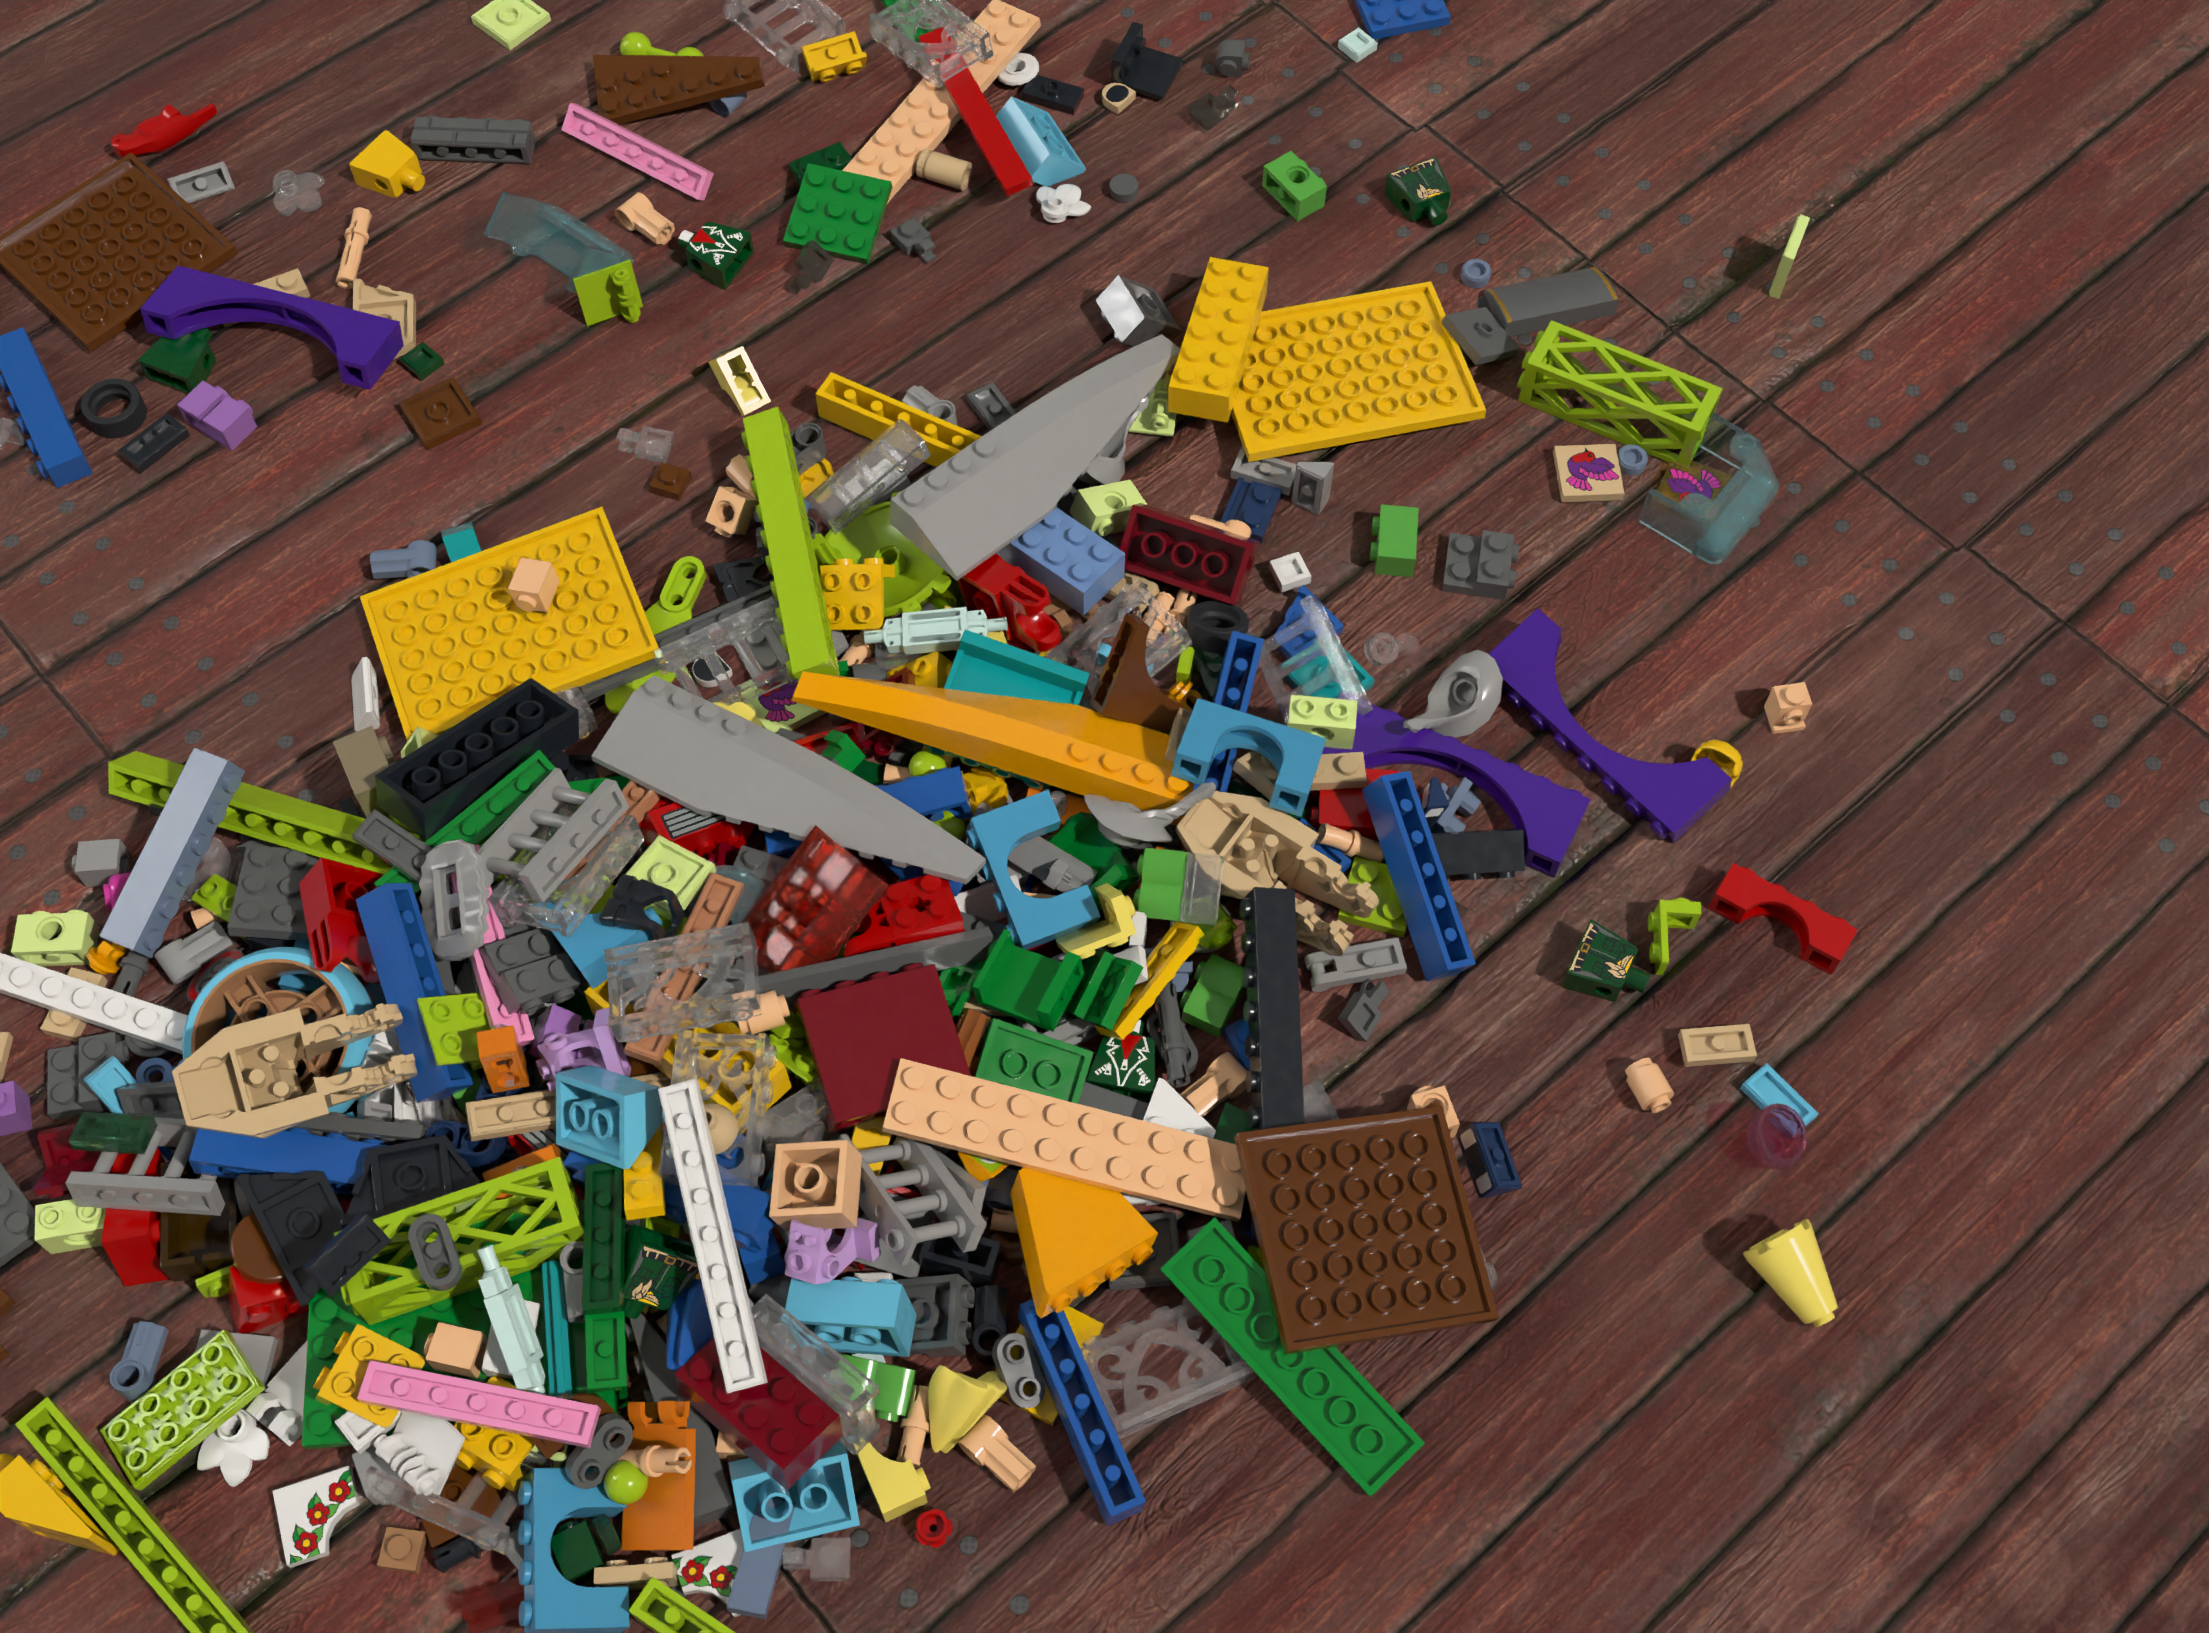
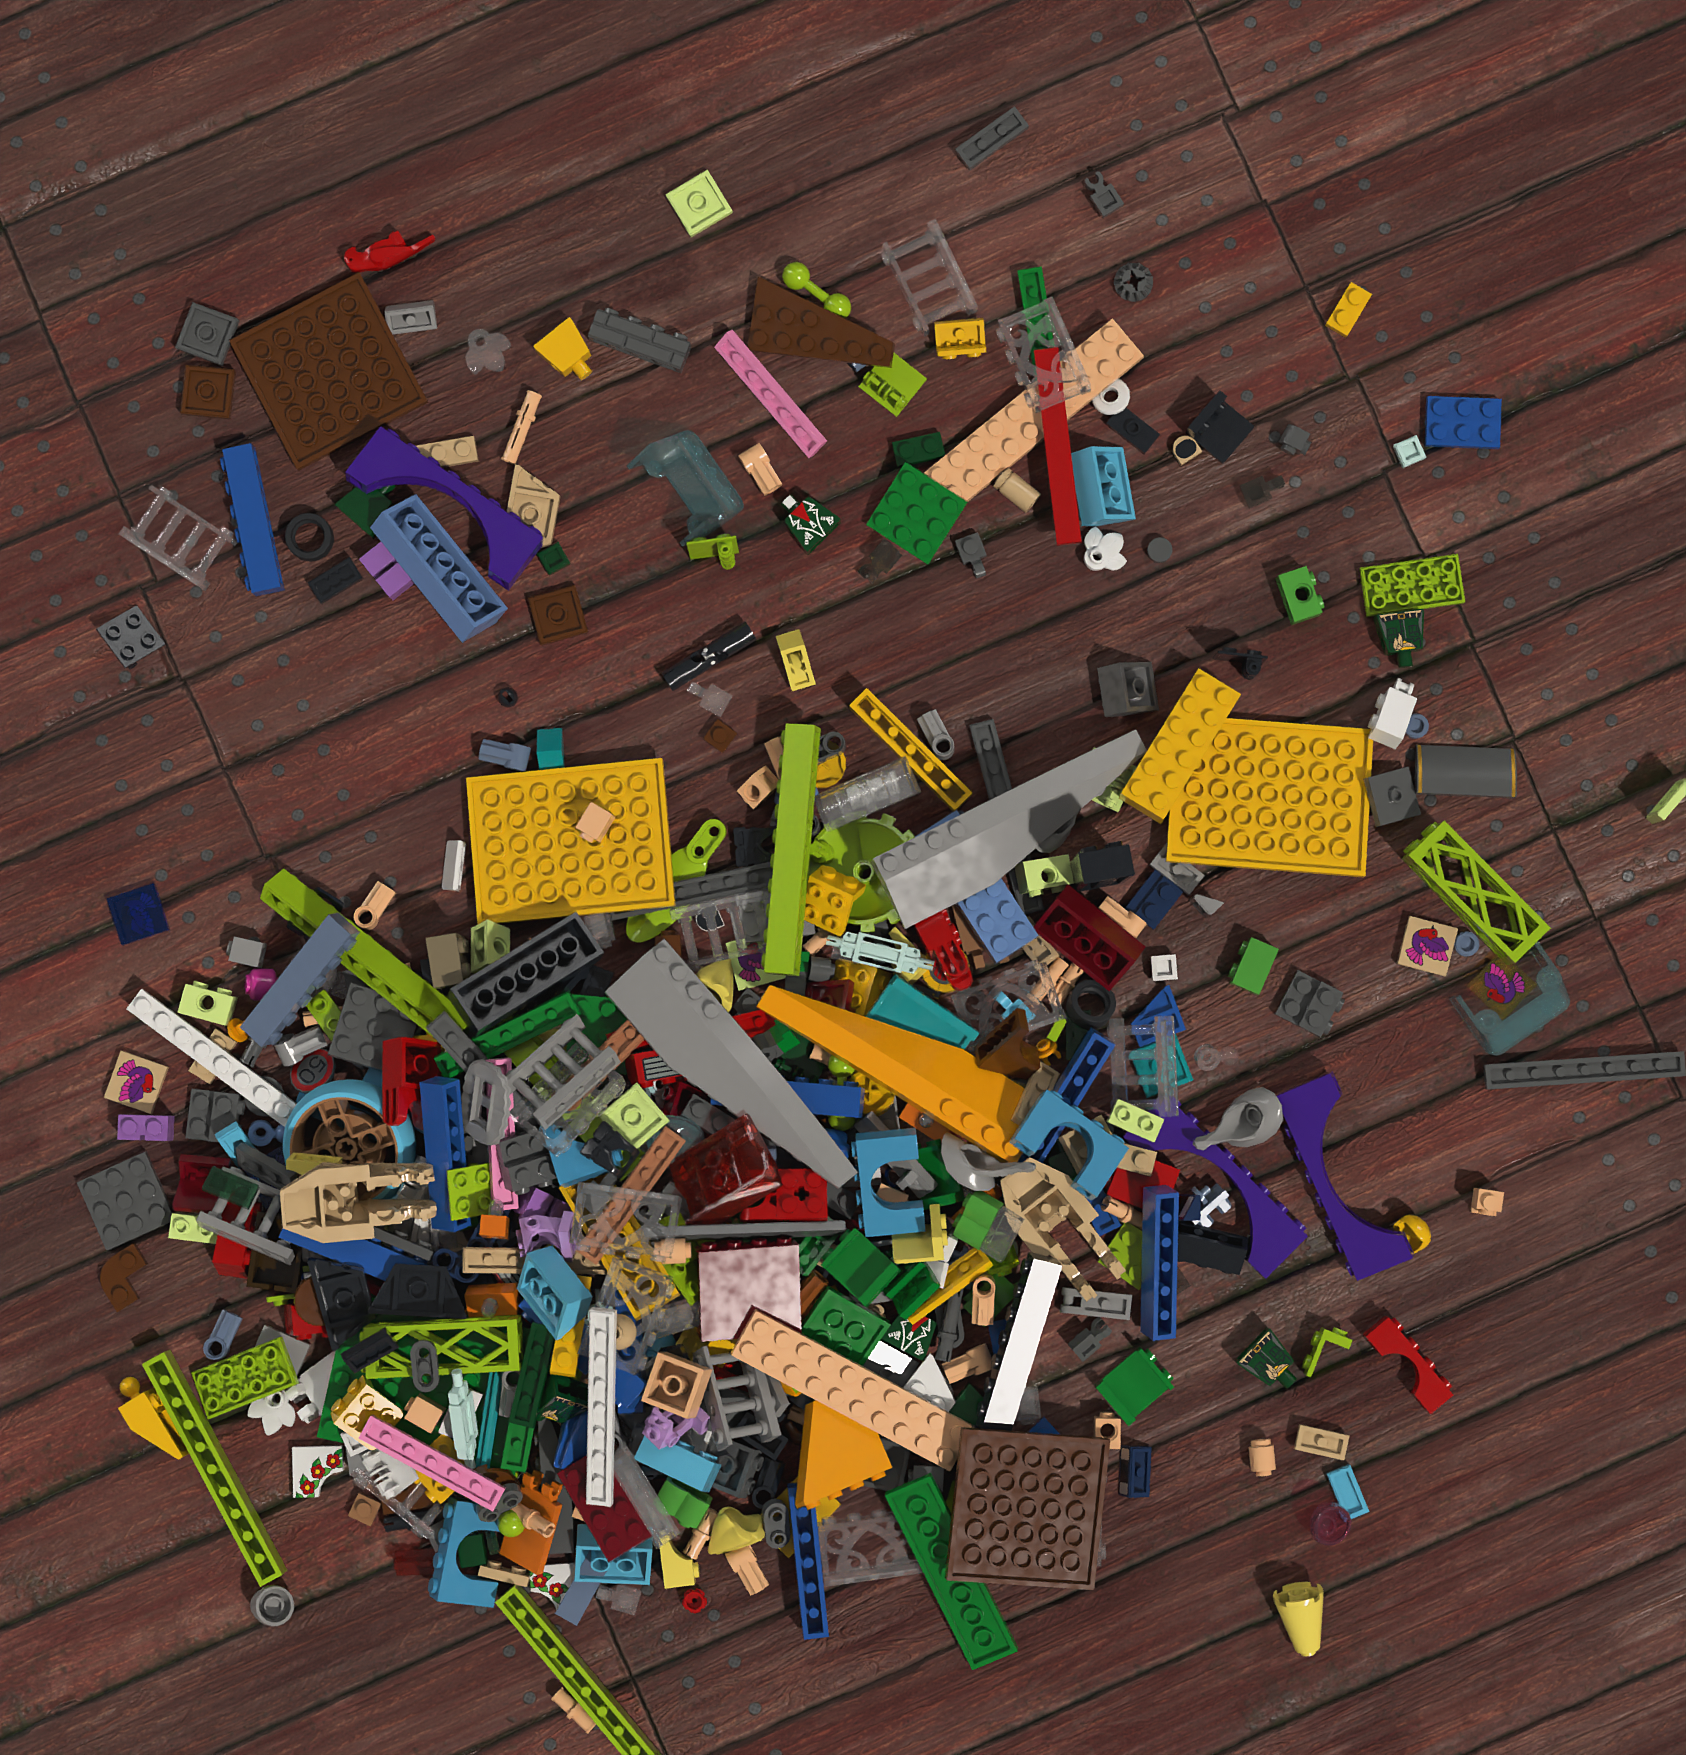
camera: 25 degrees right, 25 degrees up
(268, 762) = (376, 904): none -> light nougat piece
(278, 388) = (438, 568): none -> medium blue brick
(392, 511) = (503, 701): none -> black hinge
(622, 413) = (723, 646): none -> black piece
(771, 114) = (894, 385): none -> lime hinge
(1175, 440) = (1102, 867): none -> black brick
(1207, 985) = (983, 1301): none -> light nougat piece
(1256, 245) = (1250, 661): none -> black hinge
(1430, 139) = (1412, 585): none -> lime tile
(1446, 261) = (1393, 714): none -> white brick
(1446, 1046) = (1134, 1384): none -> green panel
(1829, 544) = (1584, 1070): none -> dark grey plate

